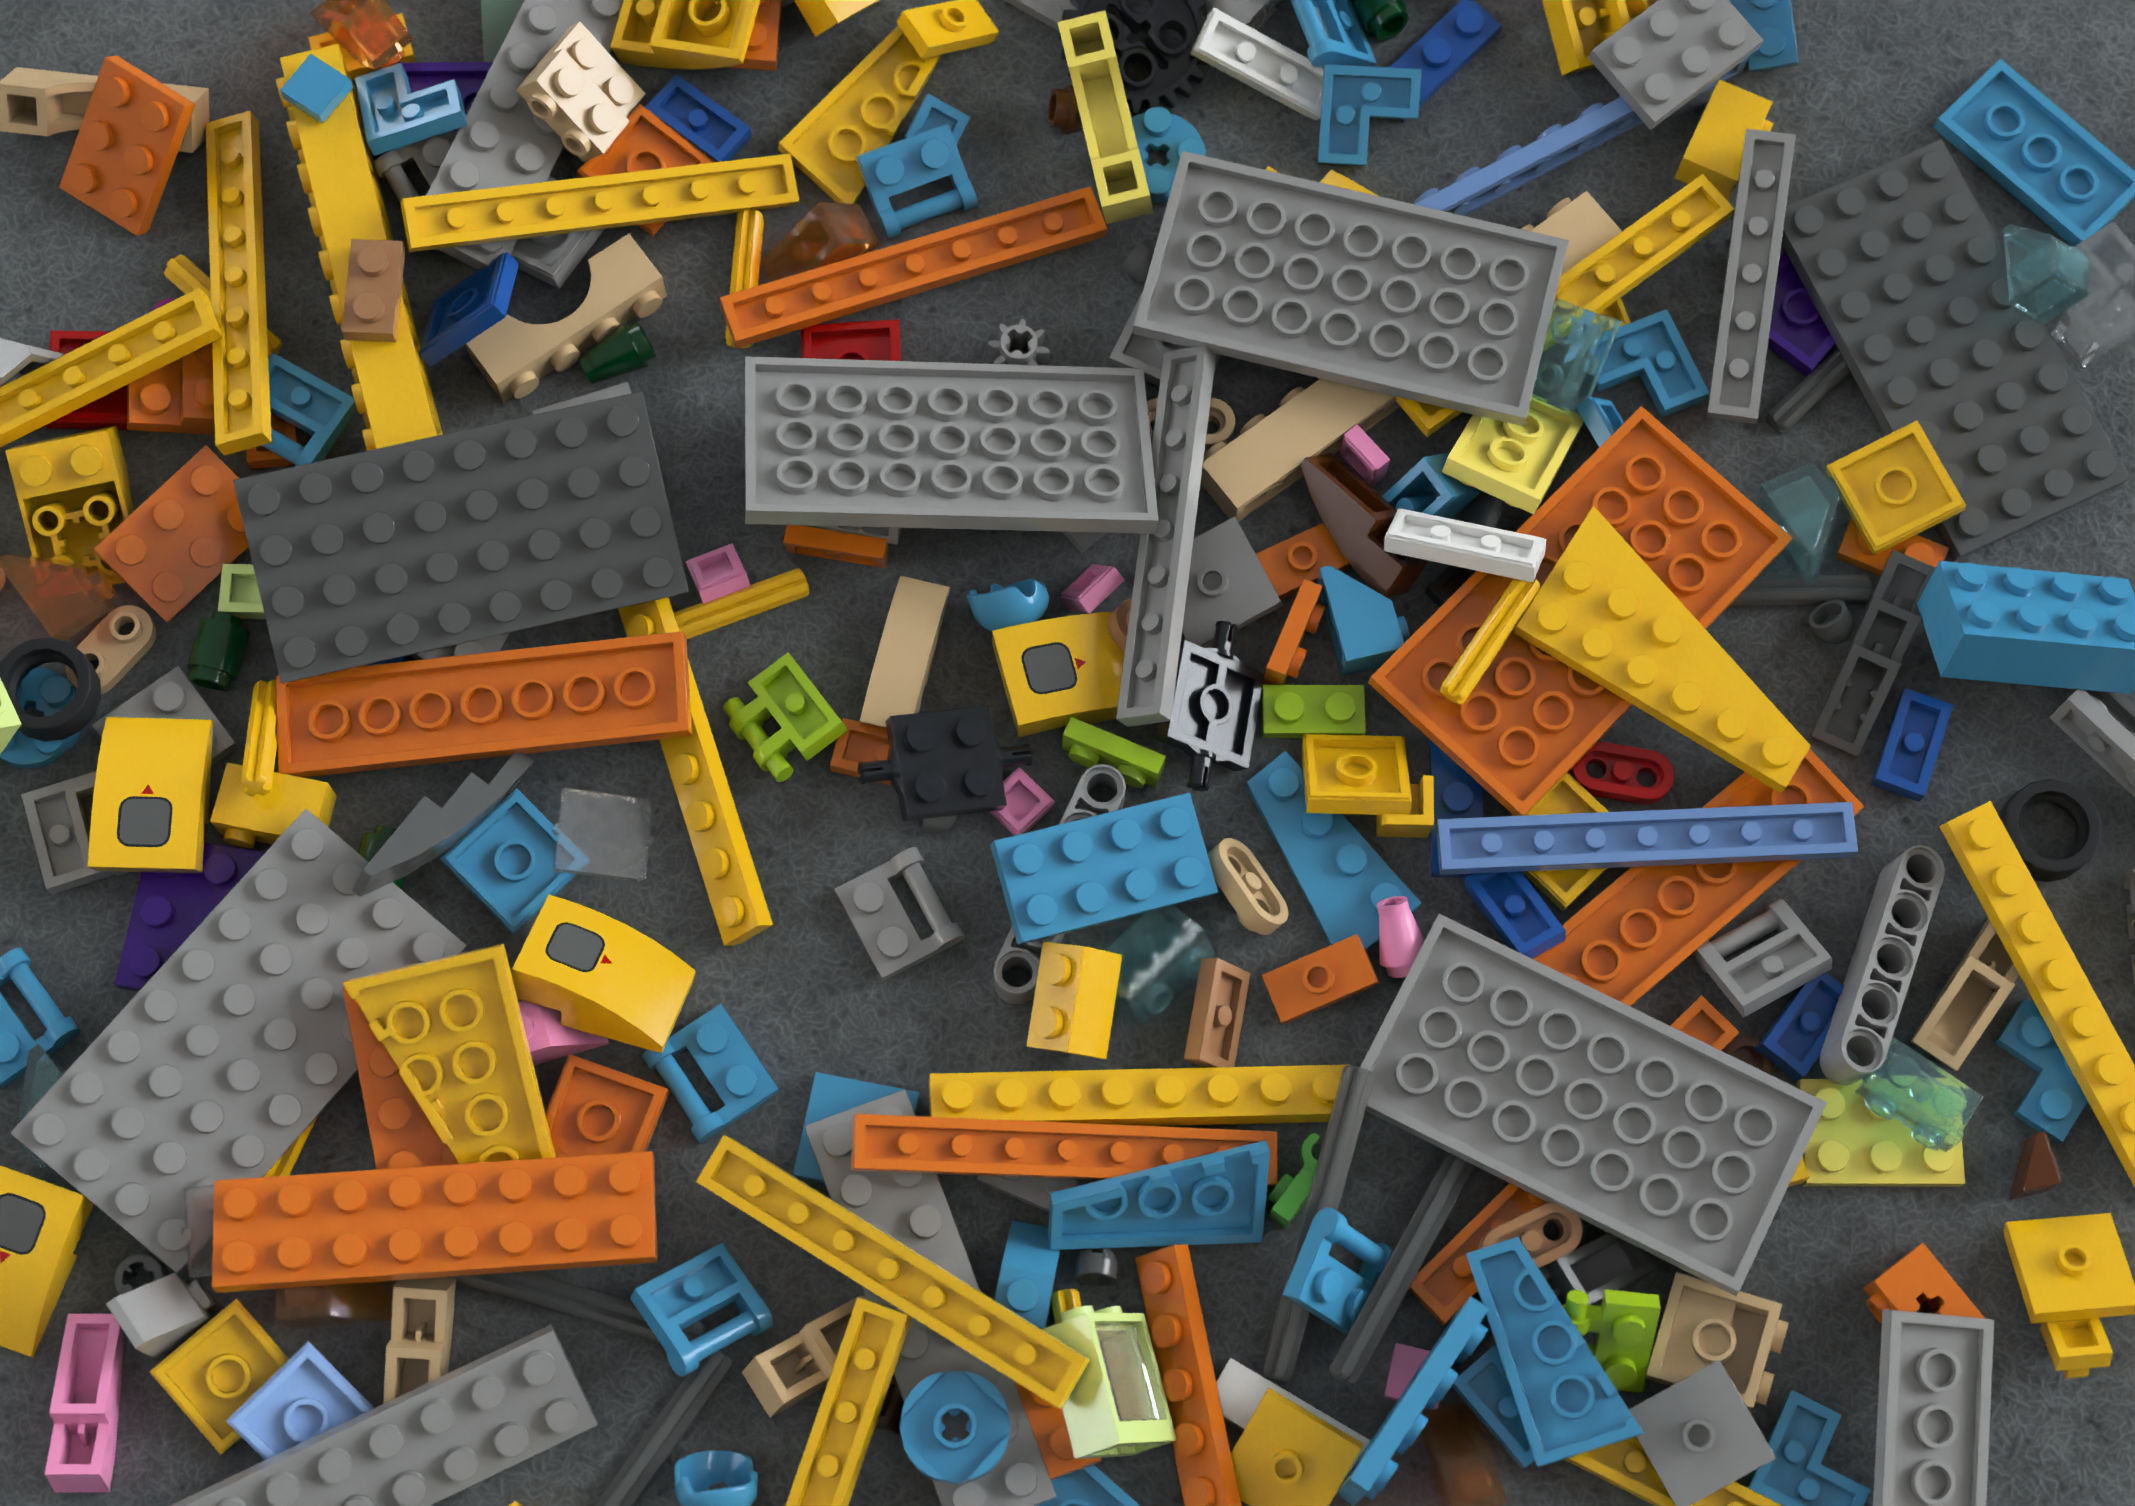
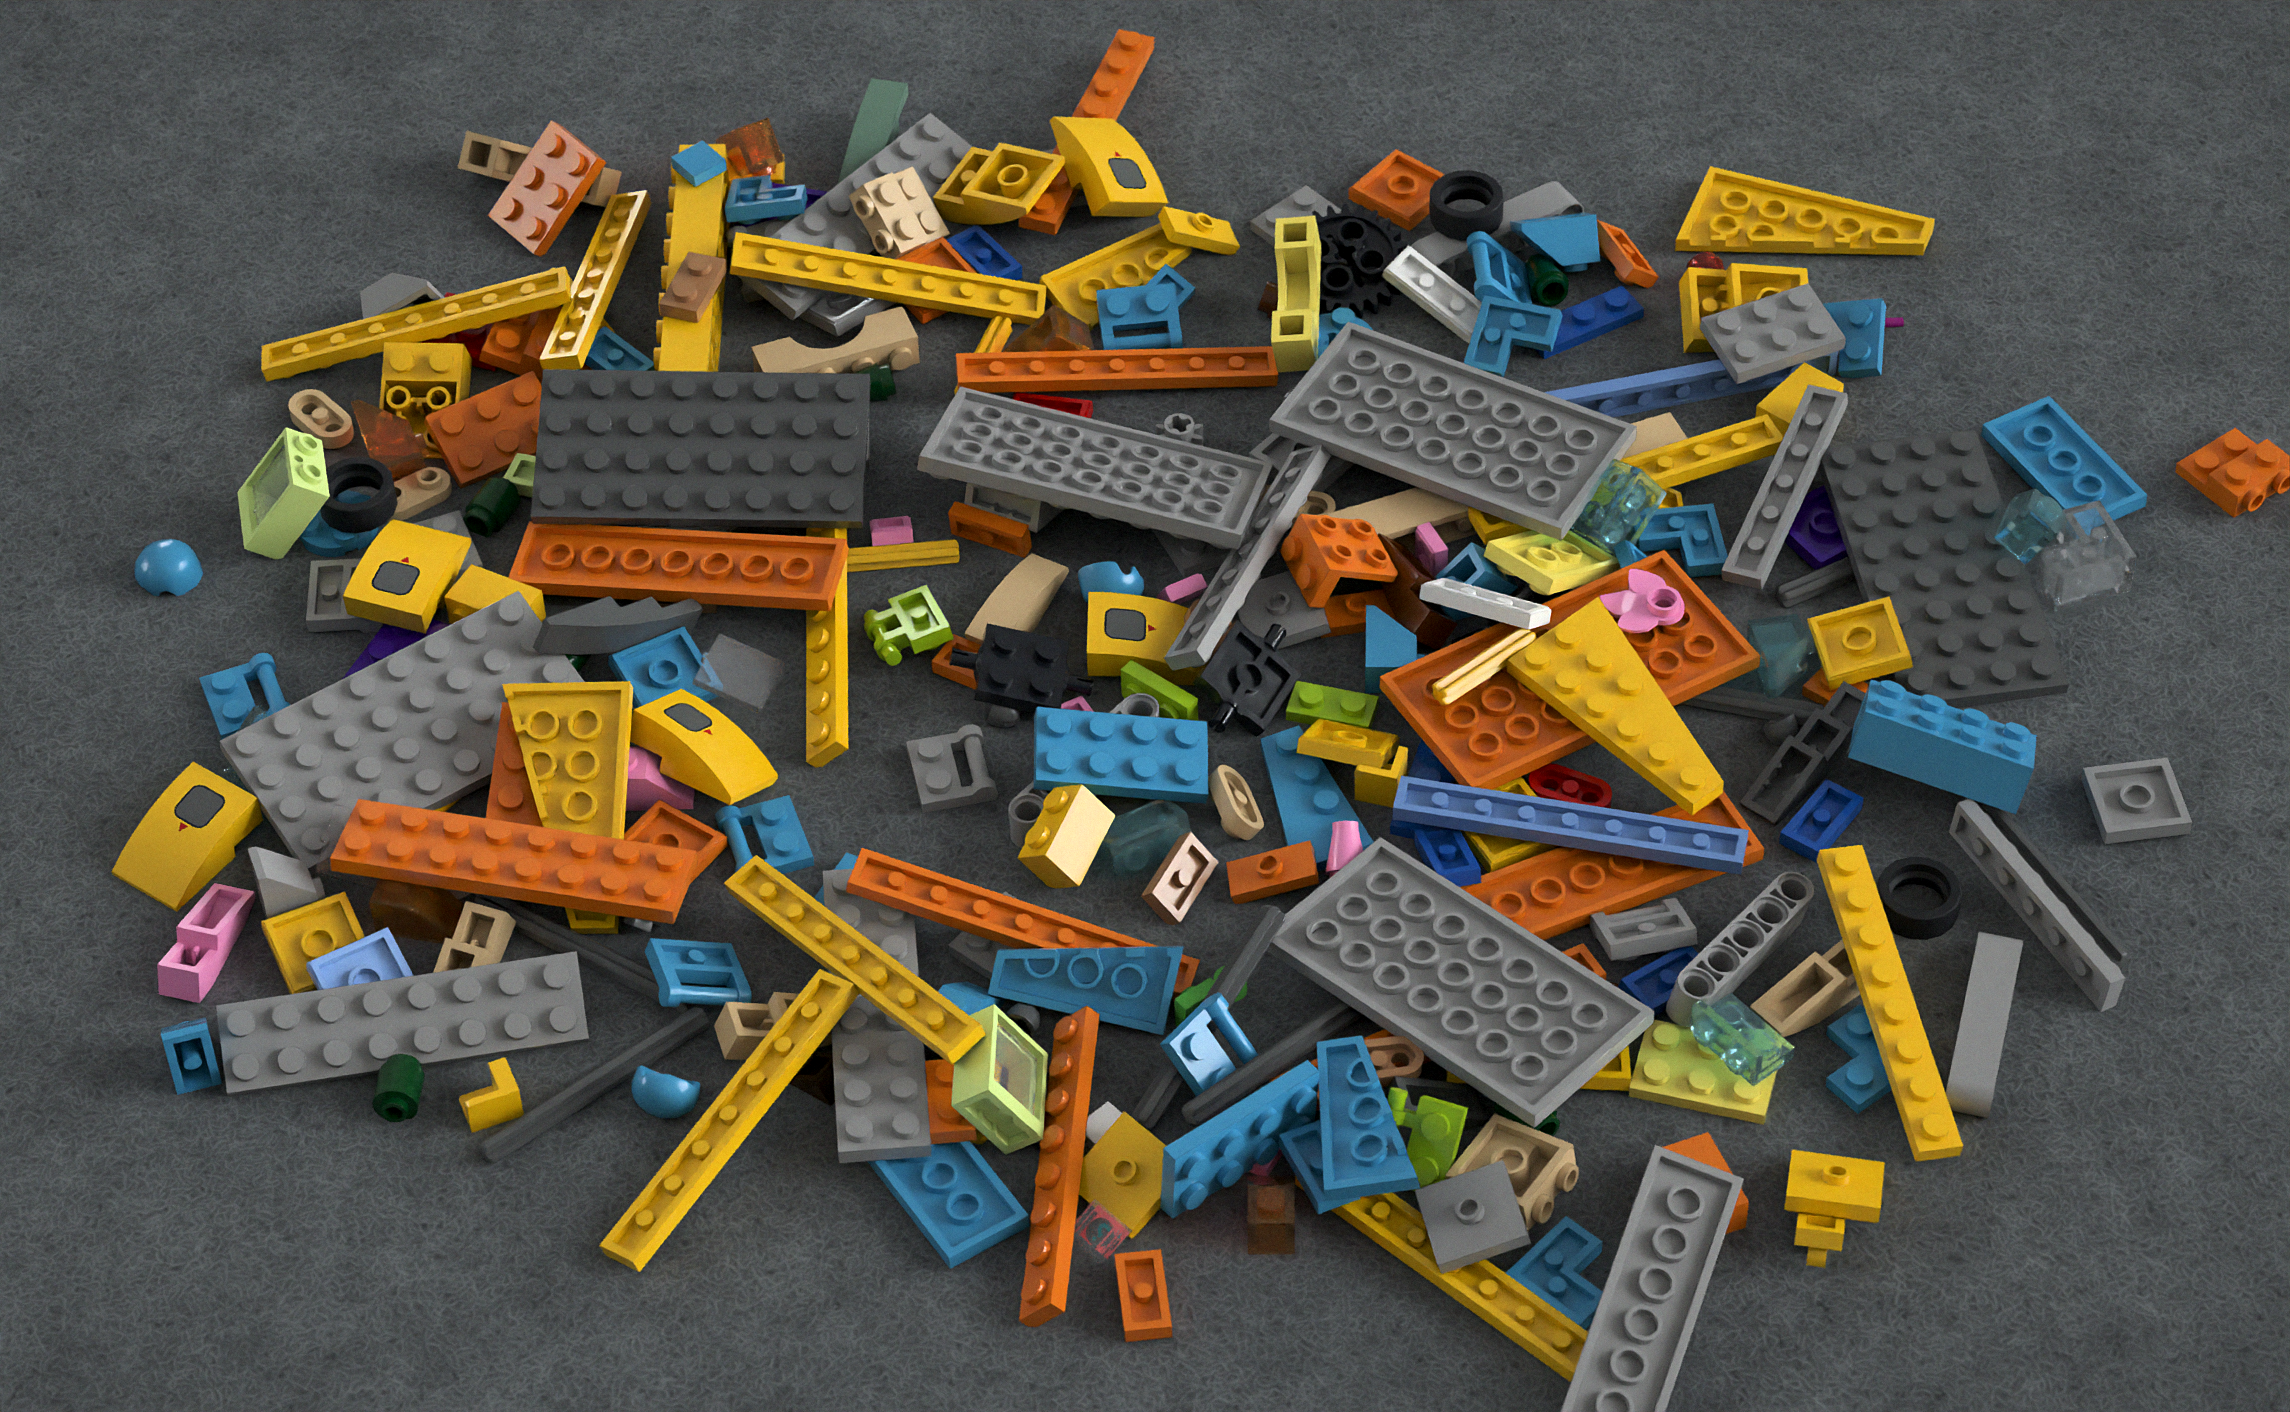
camera: 20 degrees right, 25 degrees down
(260, 740) = (500, 556): yellow axle -> none
(469, 309) = (762, 328): blue plate -> none
(955, 1394) = (867, 1091): dark azure plate -> none
(1142, 1095) = (1201, 936): yellow plate -> none
(1268, 511) = (1330, 548): none -> orange bracket
(1304, 616) = (1333, 649): orange plate -> none
(1637, 499) = (1645, 603): none -> bright pink plate
(2036, 1168) = (1826, 1116): reddish brown slope -> none

